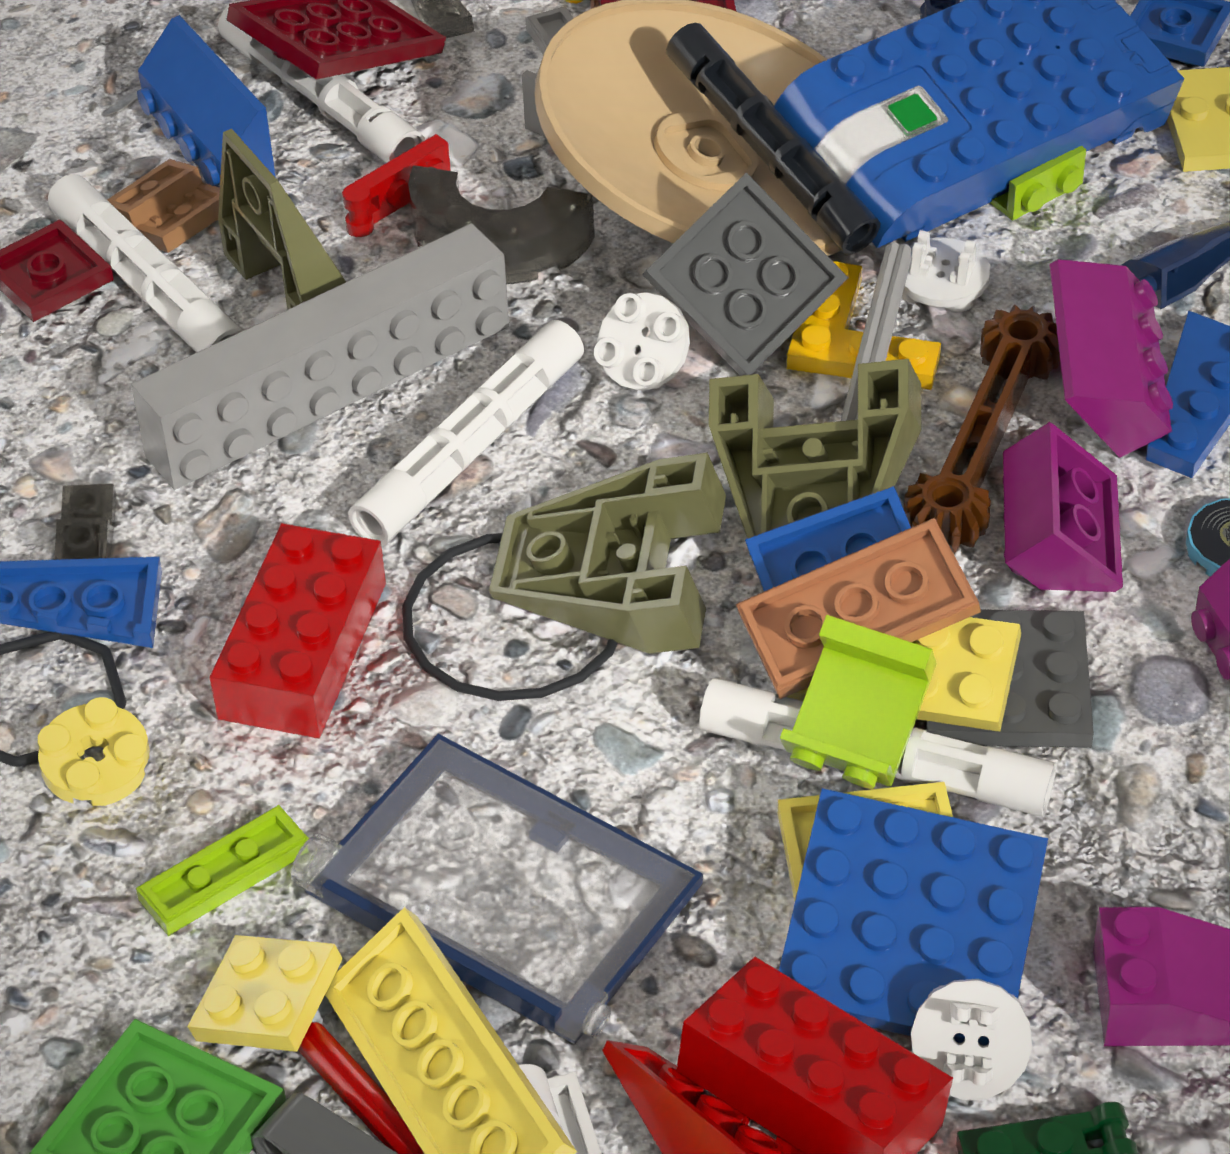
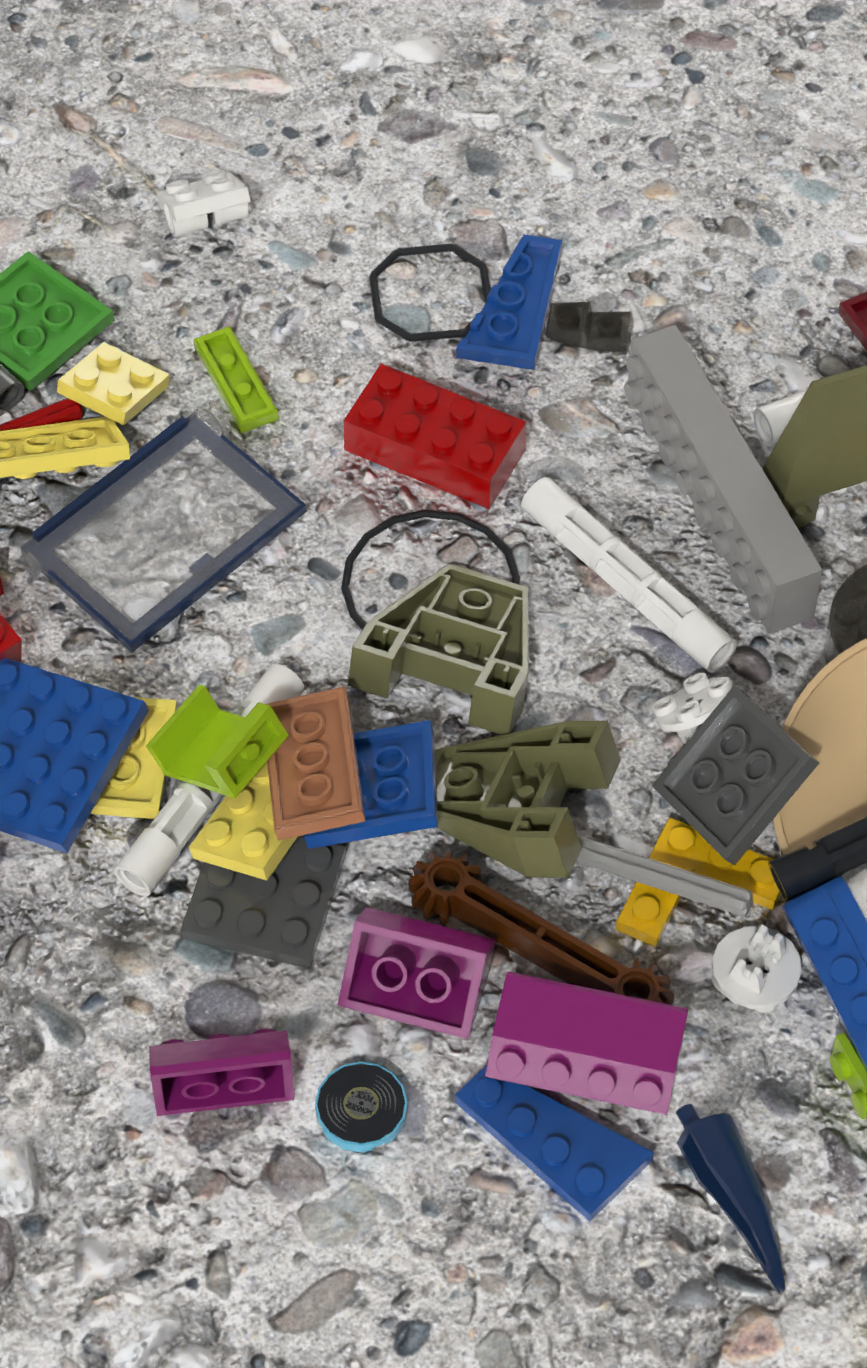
camera: 100 degrees right, 10 degrees up
(88, 726) = (354, 294): light yellow plate -> none

